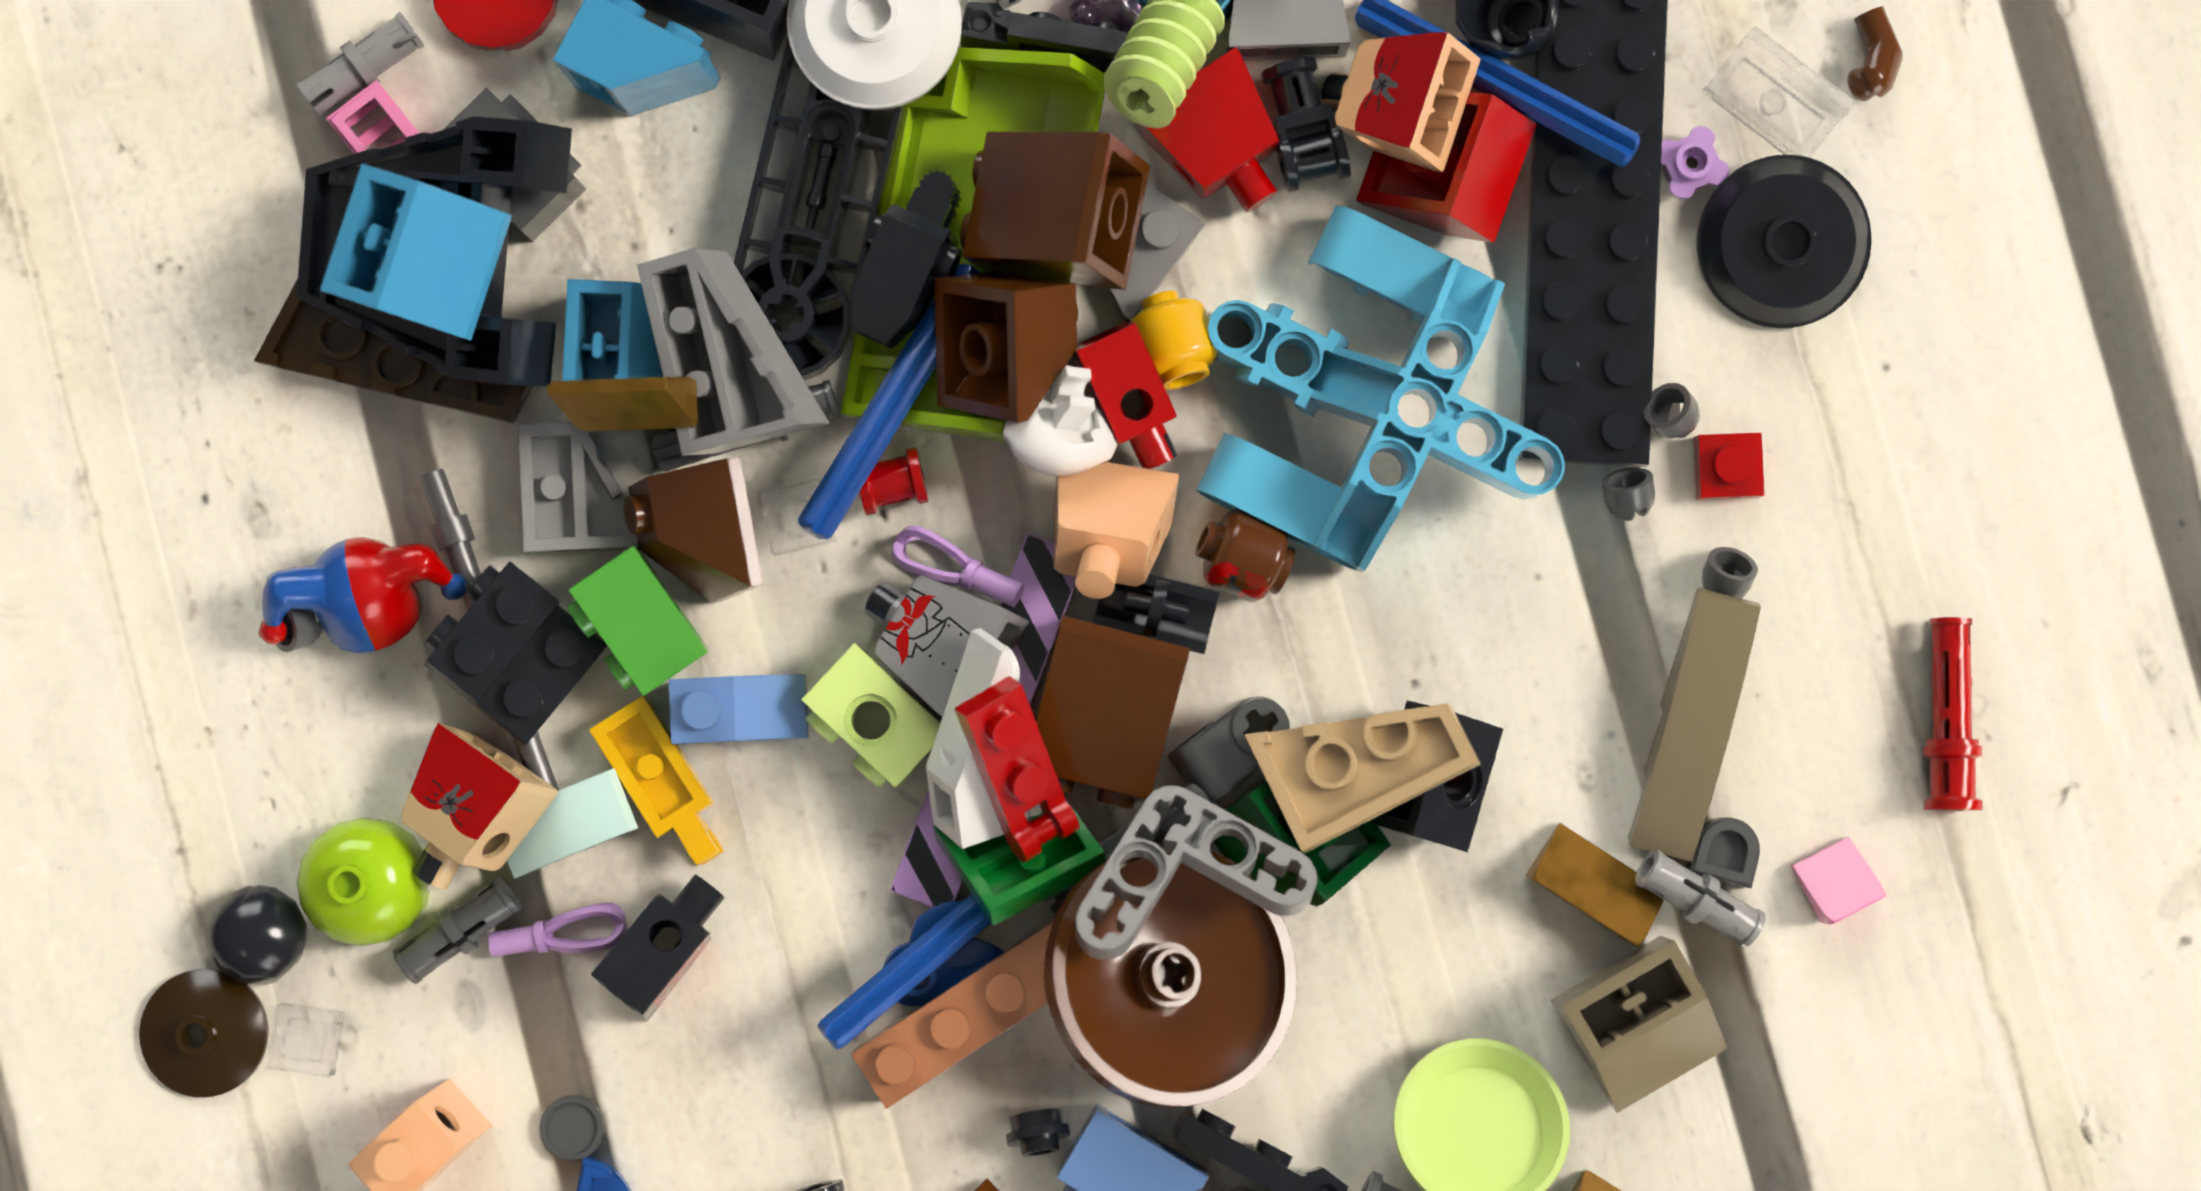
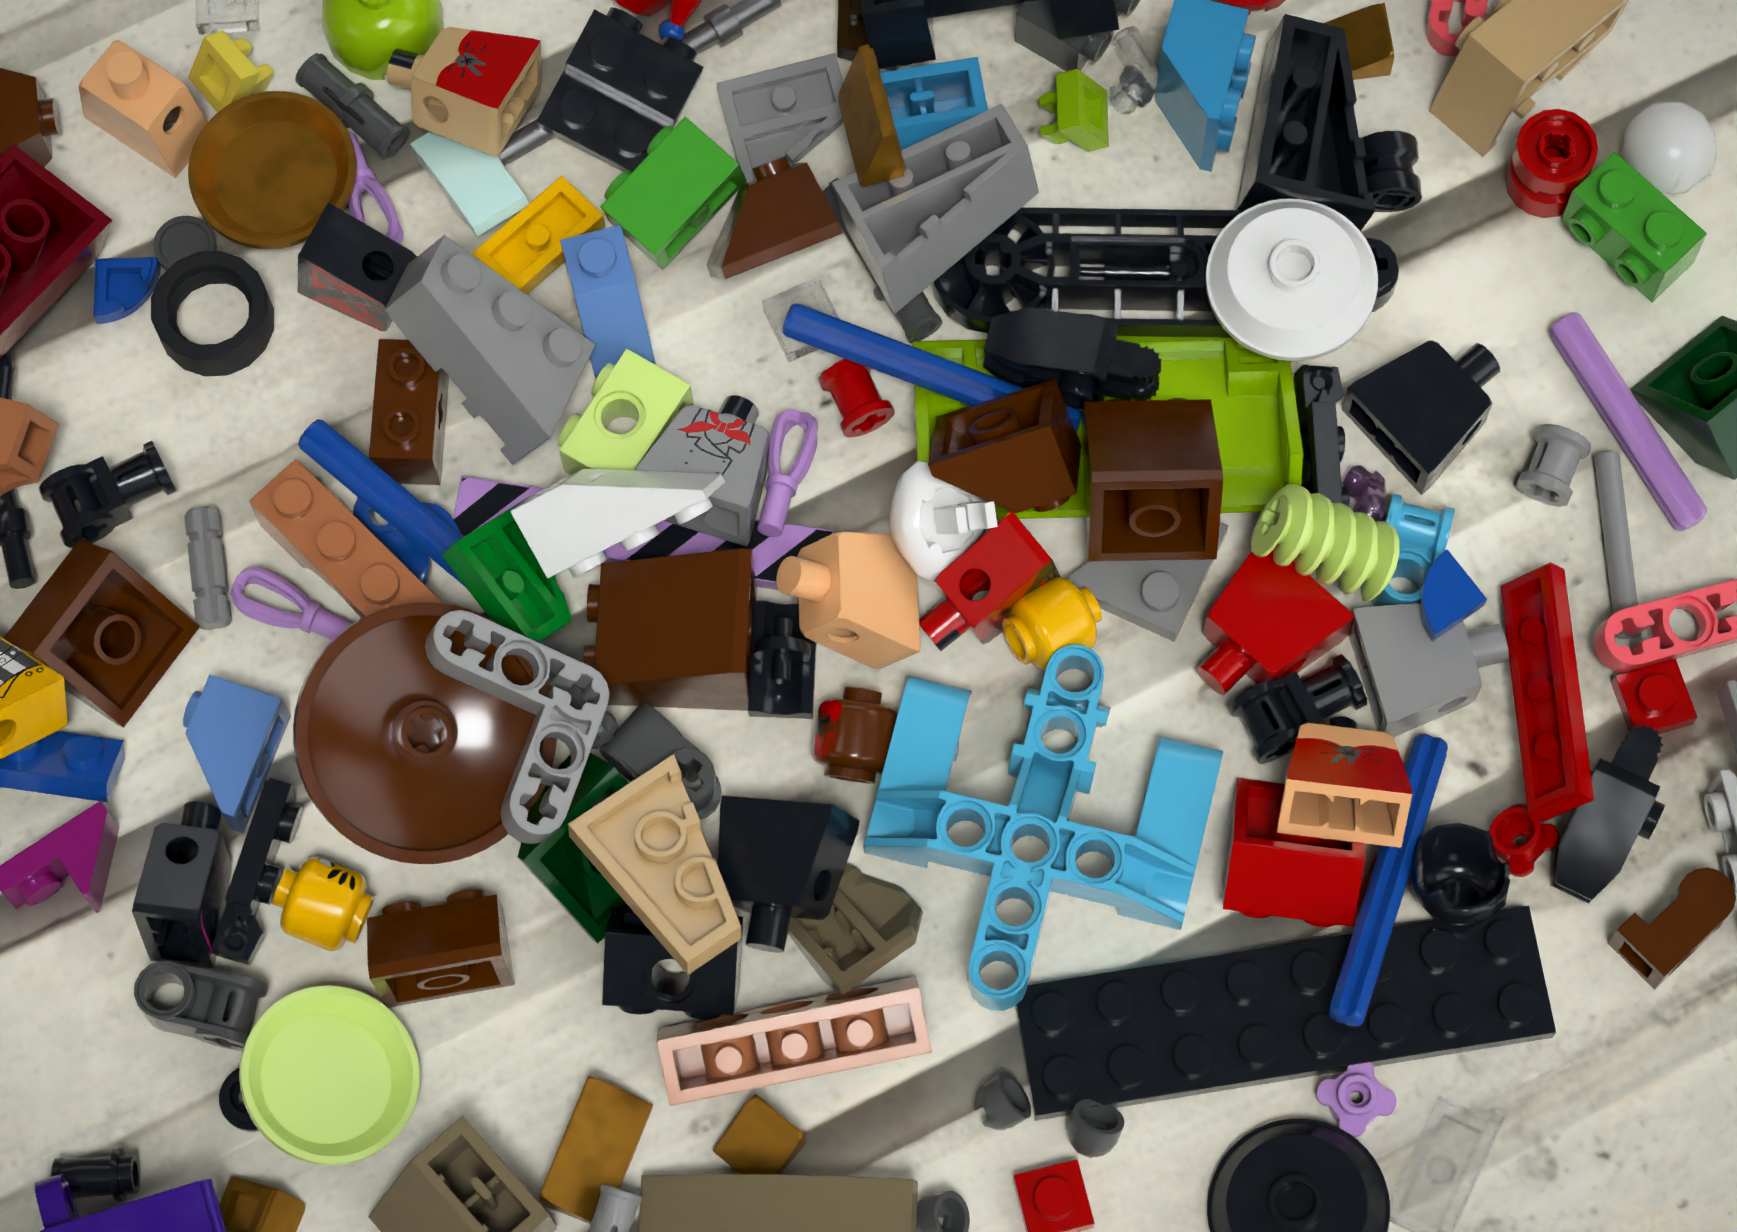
camera: 80 degrees right, 15 degrees down
(396, 1054) = (225, 72): none -> light yellow tile
(517, 1024) = (271, 168): none -> pearl gold piece
(606, 125) = (1139, 74): none -> clear arm
(611, 1123) = (197, 272): none -> black tyre
(633, 191) = (1080, 111): none -> lime tile
(774, 831) = (492, 342): none -> light grey wedge
(813, 930) = (408, 415): none -> reddish brown brick
(929, 1160) = (208, 568): none -> light grey axle
(1003, 1064) = (312, 618): none -> lavender piece
(1015, 767) = (596, 536): red plate -> none
(1037, 1132) = (252, 658): black plate -> none
(1304, 1103) = (323, 903): none -> yellow head
(1362, 653) = (782, 862): none -> black torso
(1376, 1000) = (438, 949): none -> reddish brown slope
(1433, 596) = (861, 934): none -> dark tan slope
(1540, 675) = (793, 1041): none -> brick
(1619, 728) = (760, 1140): none -> pearl gold slope

